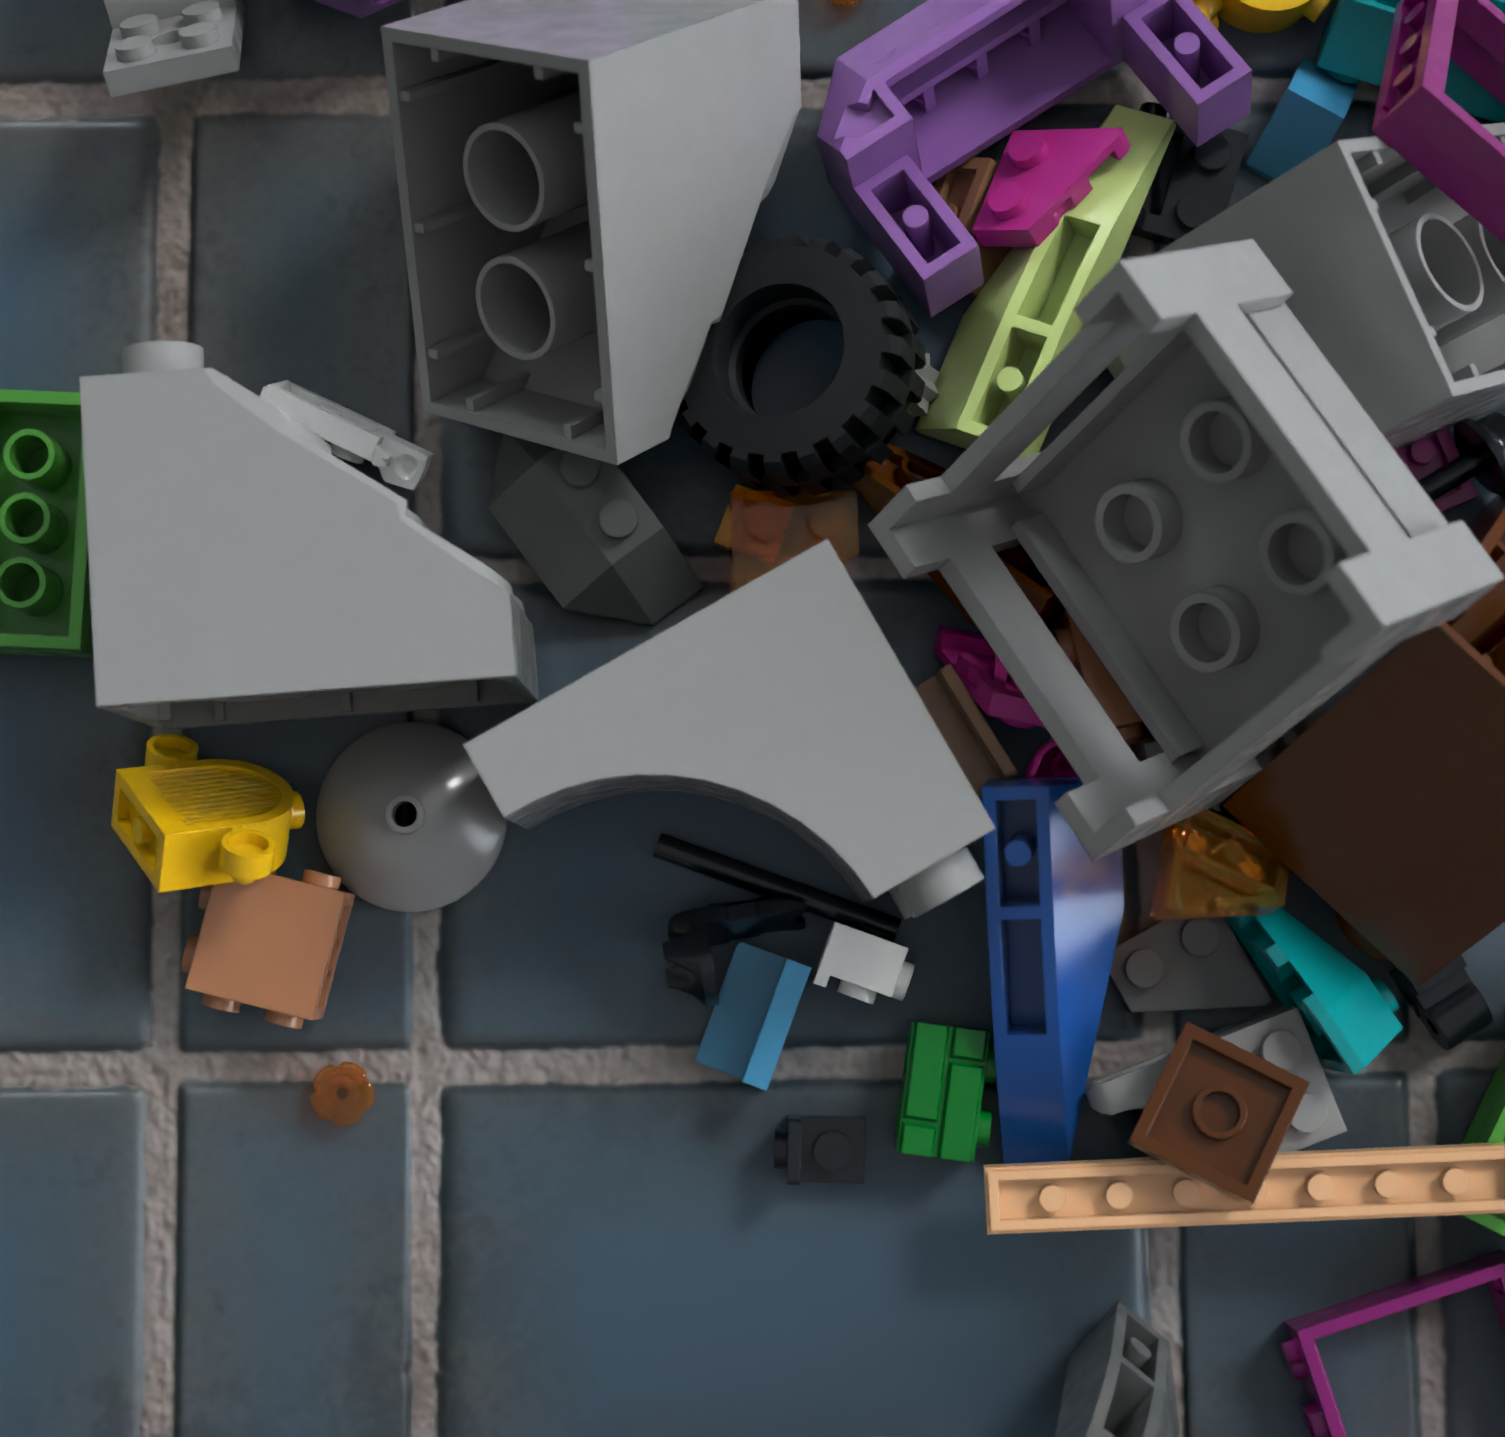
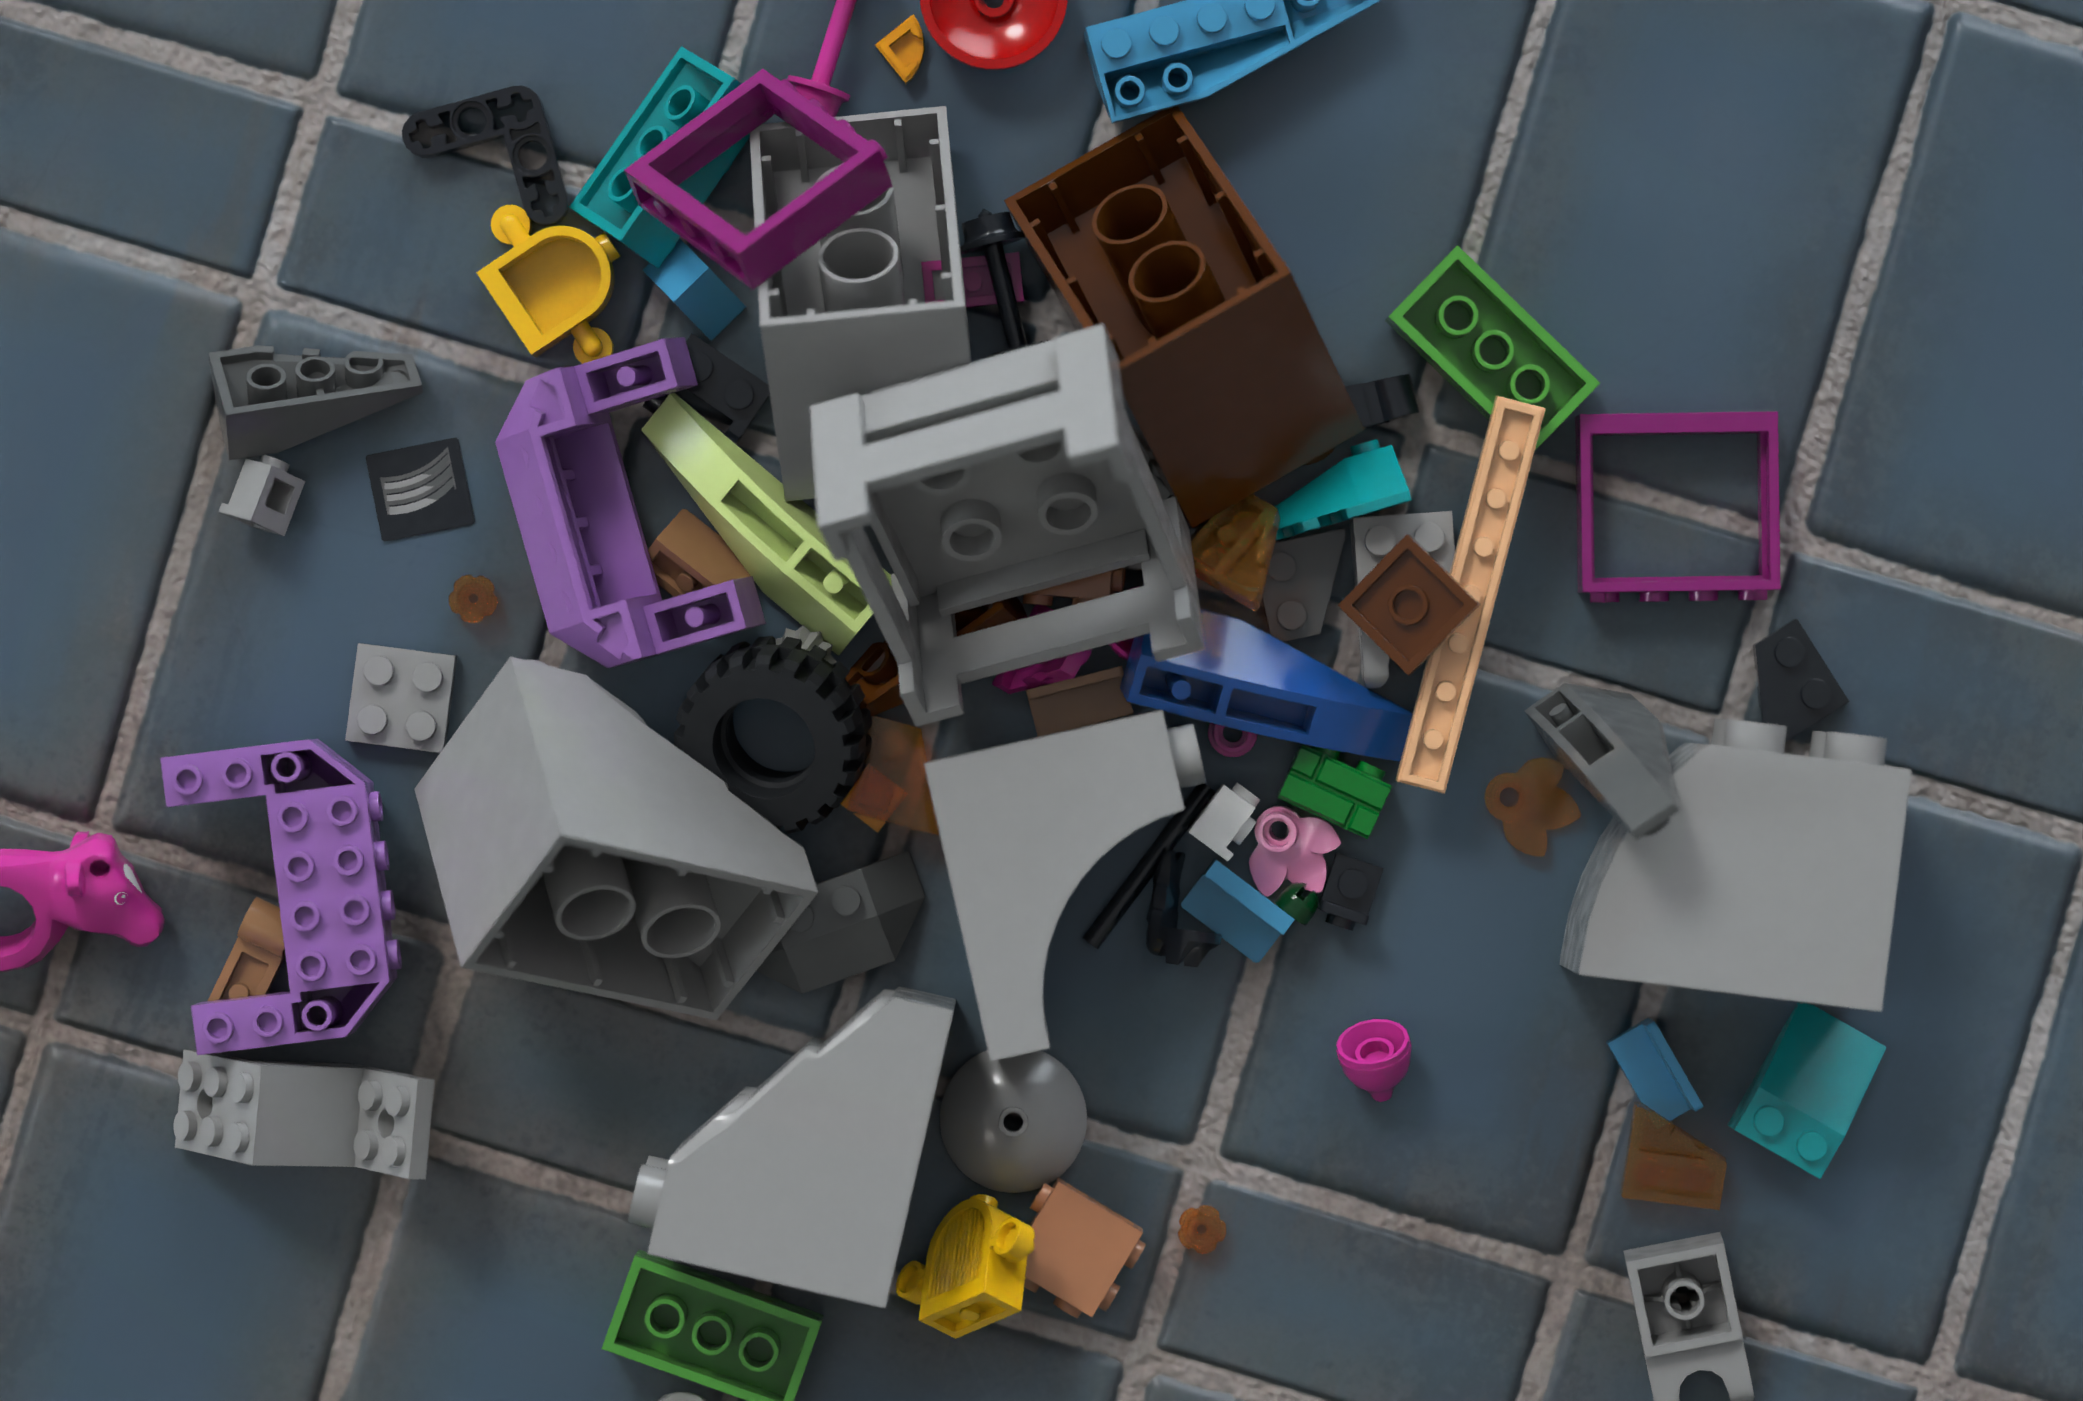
camera: 75 degrees left, 5 degrees up
(352, 434) = (711, 1080): white hinge -> none
(625, 1247) = (1375, 1056): none -> dark pink helmet
(783, 1086) = (1297, 906): none -> dark green hinge
(841, 1065) = (1295, 857): none -> bright pink plate
(952, 943) = (1227, 748): none -> dark pink plate
(1002, 1354) = (1538, 804): none -> clear orange plate
(1041, 180) = (688, 509): dark pink wing -> none

